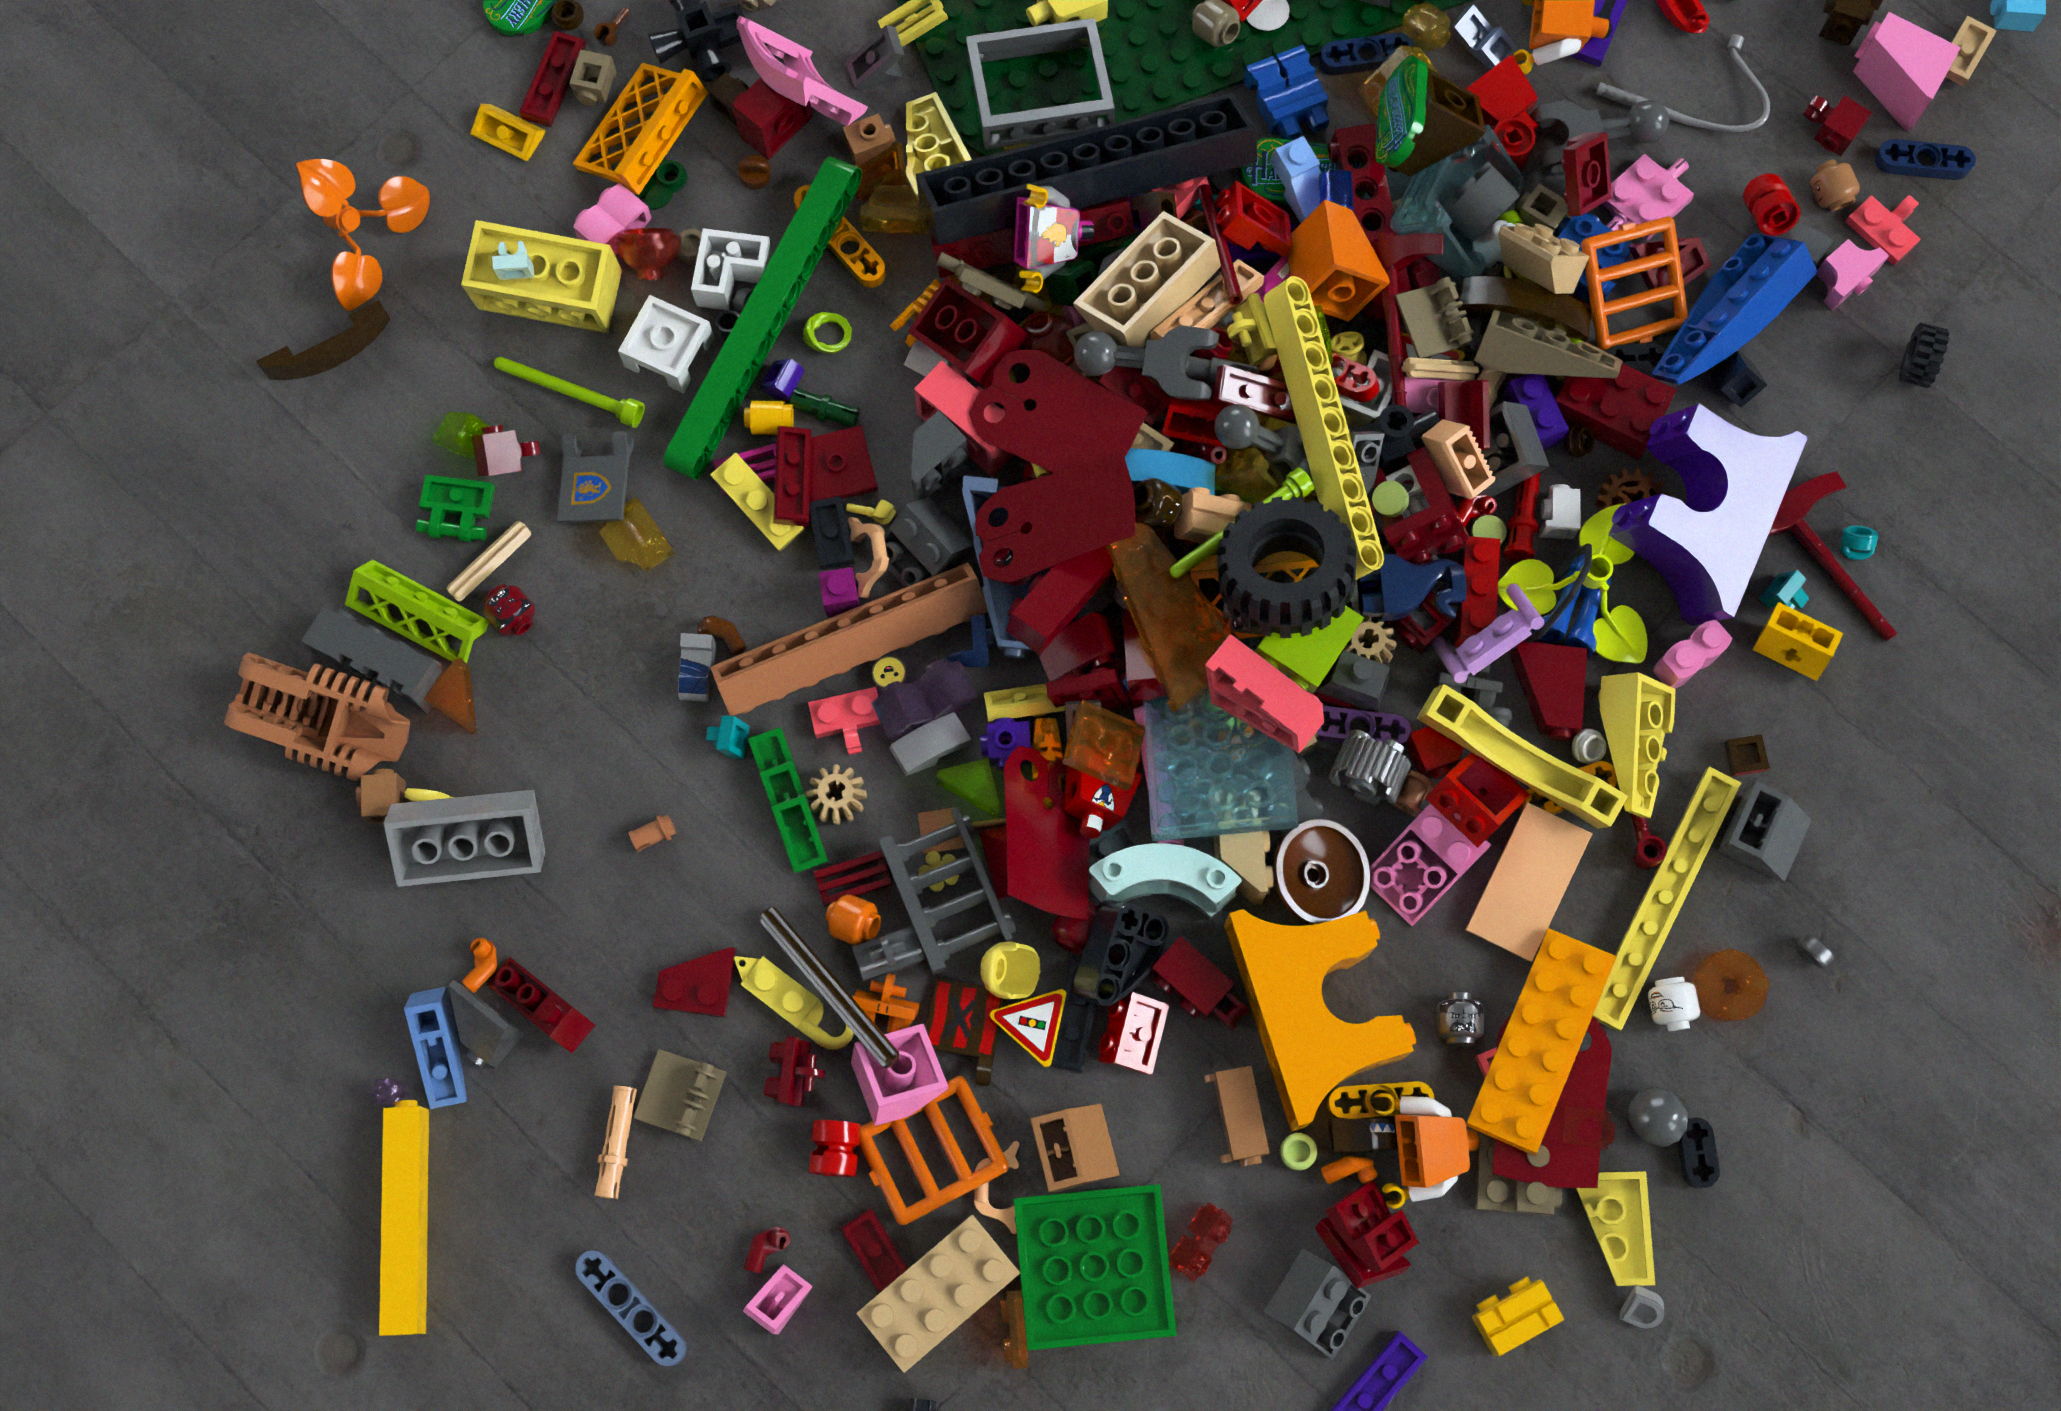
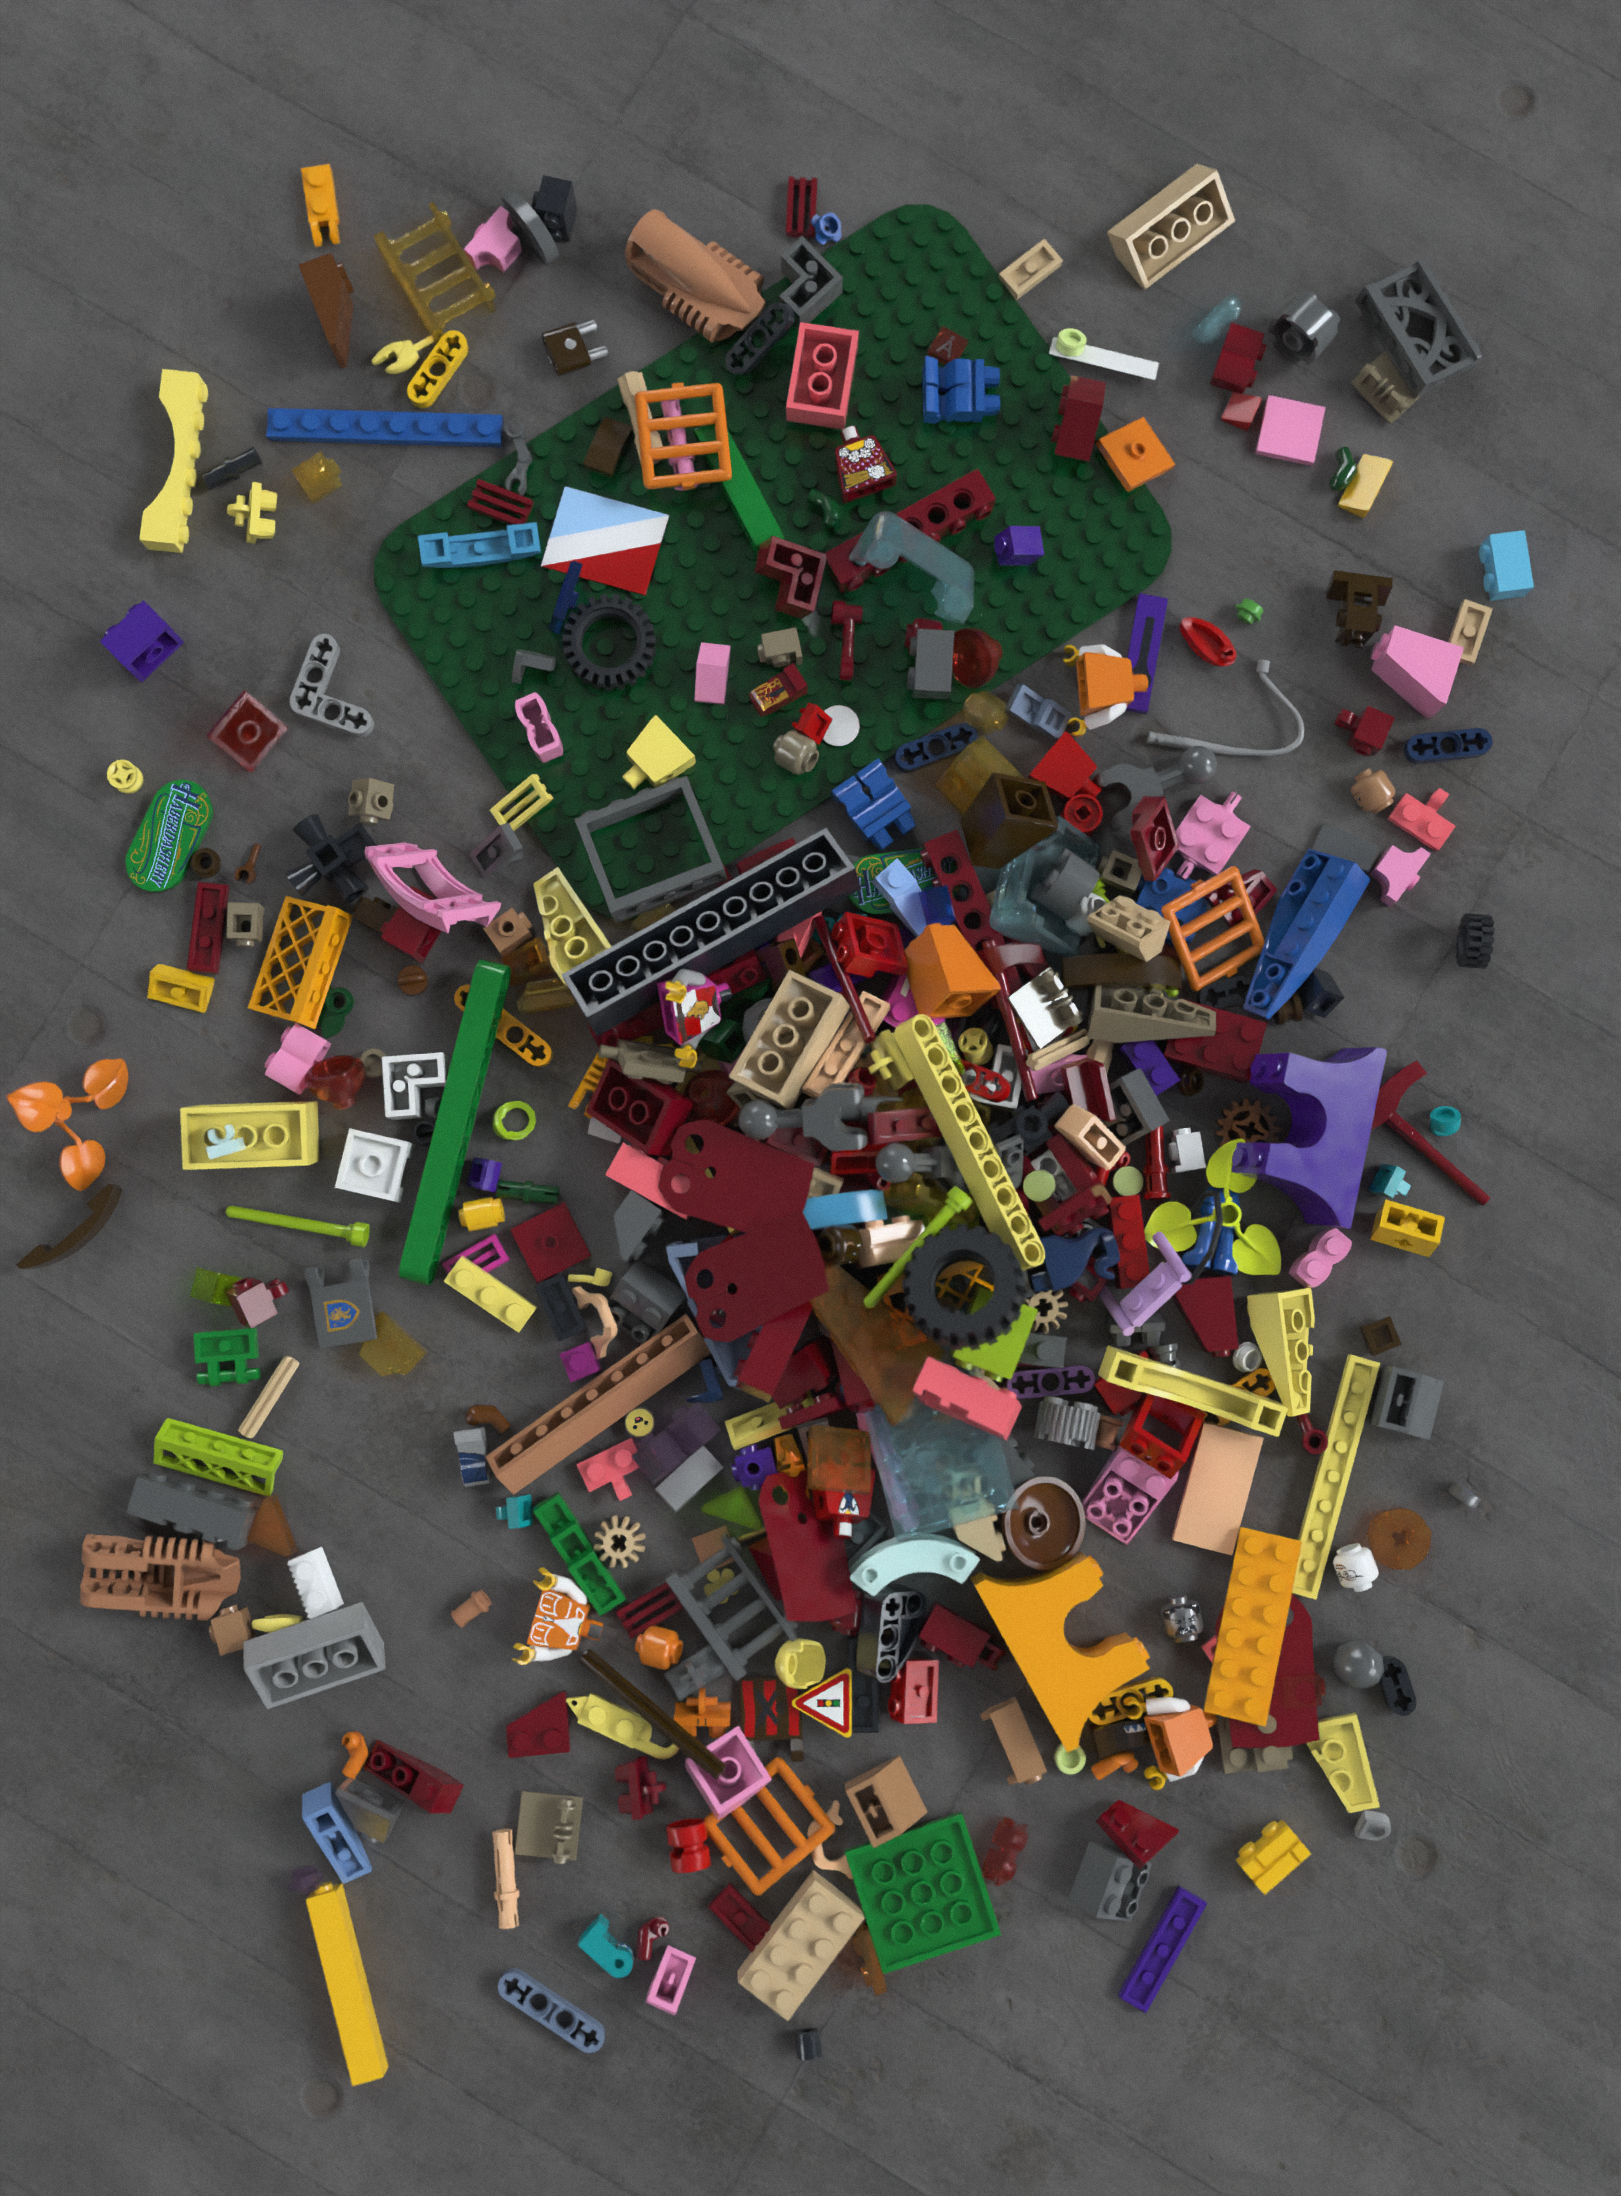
camera: 15 degrees left, 10 degrees up
(486, 760) = (315, 1582): none -> white brick
(509, 610) = (298, 1439): dark red head -> none
(710, 1250) = (605, 1949): none -> teal leg
(747, 864) = (558, 1621): none -> torso
(792, 476) = (515, 1266): dark red tile -> none
(1371, 1228) = (1142, 1813): dark red slope -> none
(1401, 112) = (980, 820): green tile -> none
(1701, 387) = (1289, 1011): none -> dark brown wheel
(1771, 204) = (1320, 825): red wheel -> none

